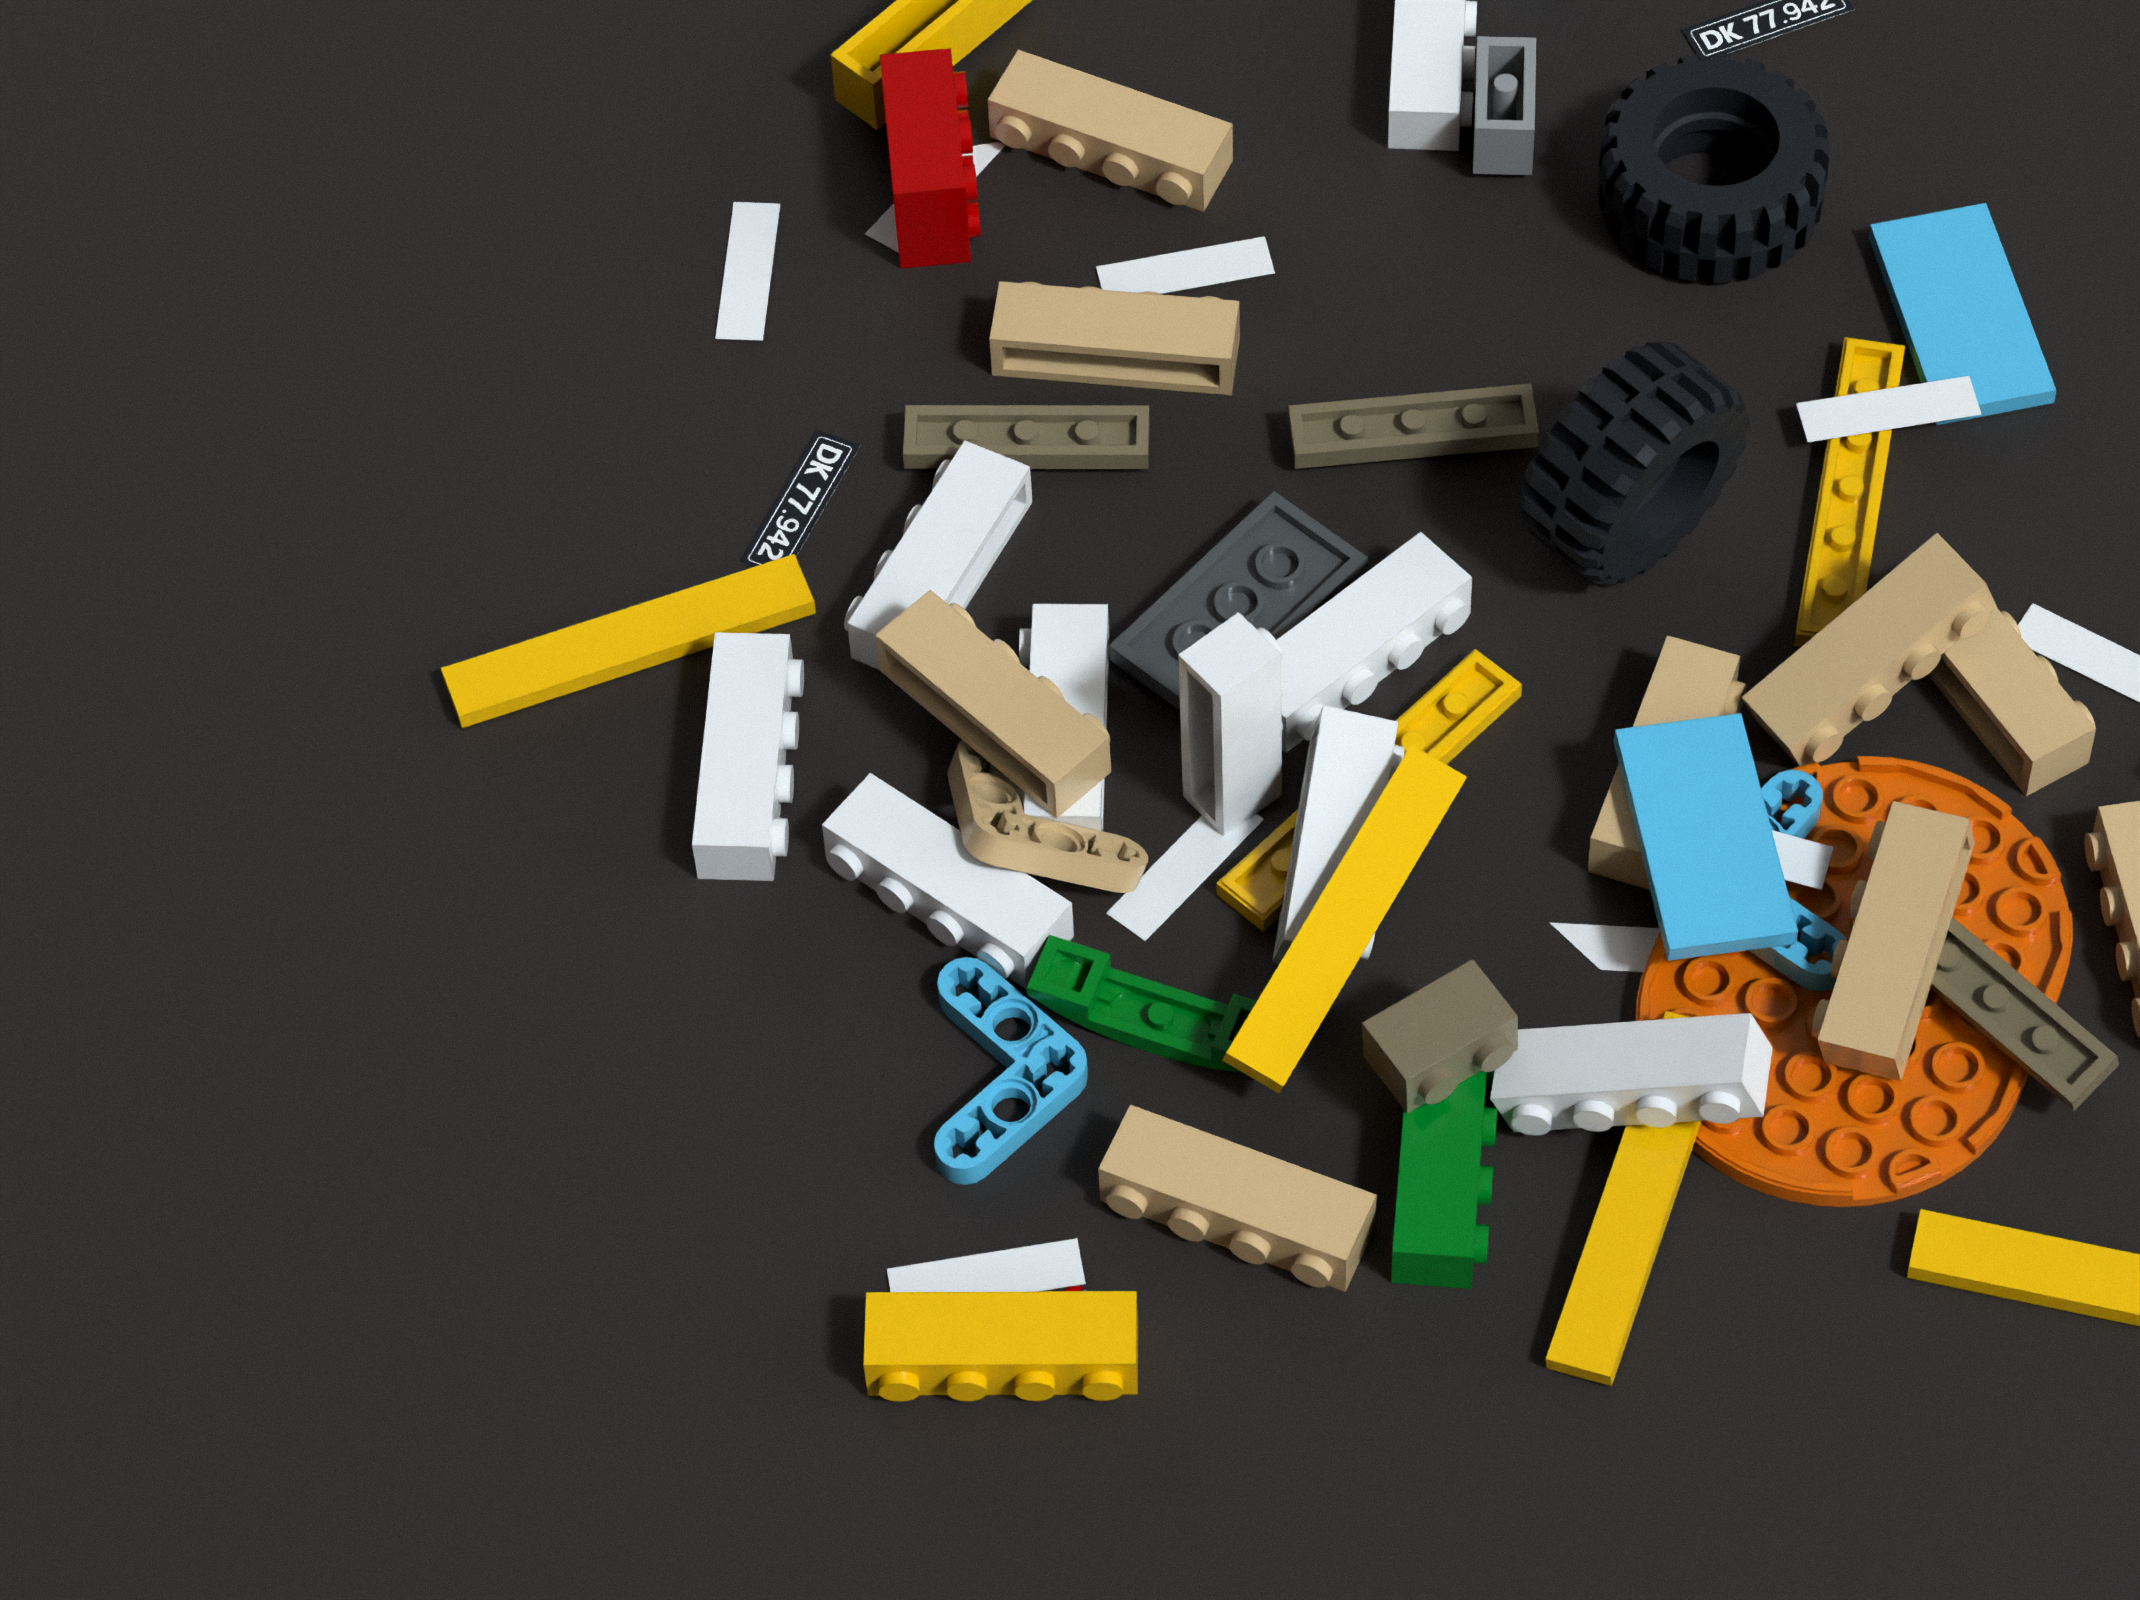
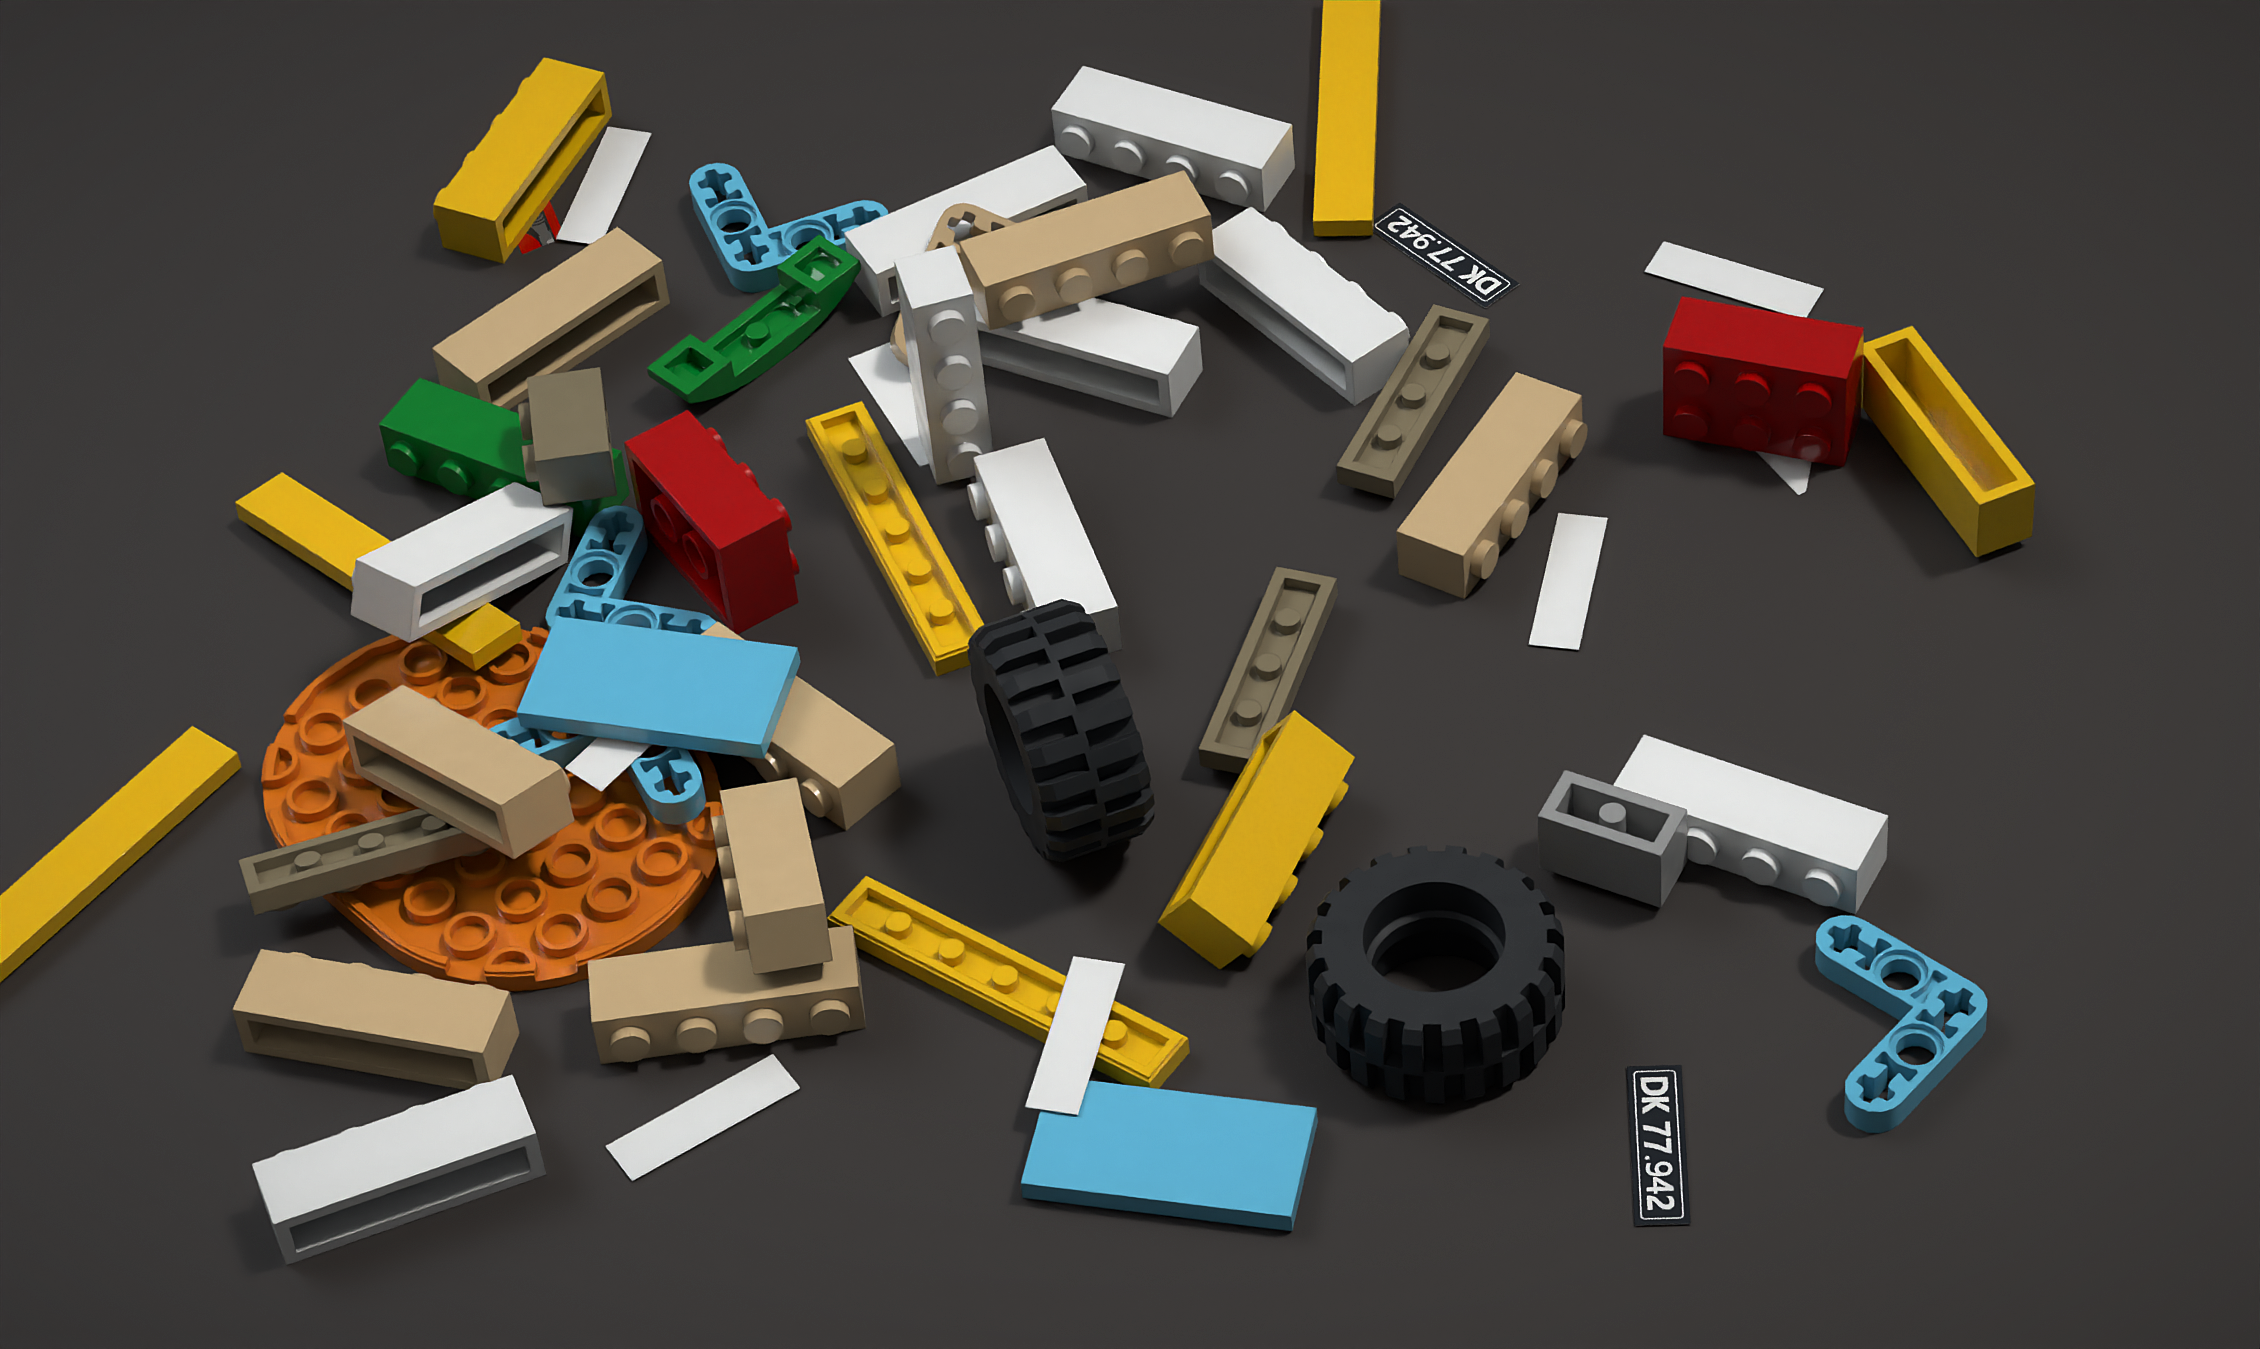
camera: 115 degrees right, 10 degrees down
(1110, 130) = (1751, 547): tan brick -> none
(1268, 569) = (1138, 493): dark grey plate -> none
(1343, 778) = (836, 460): white brick -> none
(1344, 919) = (779, 458): yellow tile -> none
(1468, 888) = (713, 521): none -> red brick
(1576, 341) = (1258, 841): none -> yellow brick
(1583, 992) = (606, 601): none -> medium azure beam

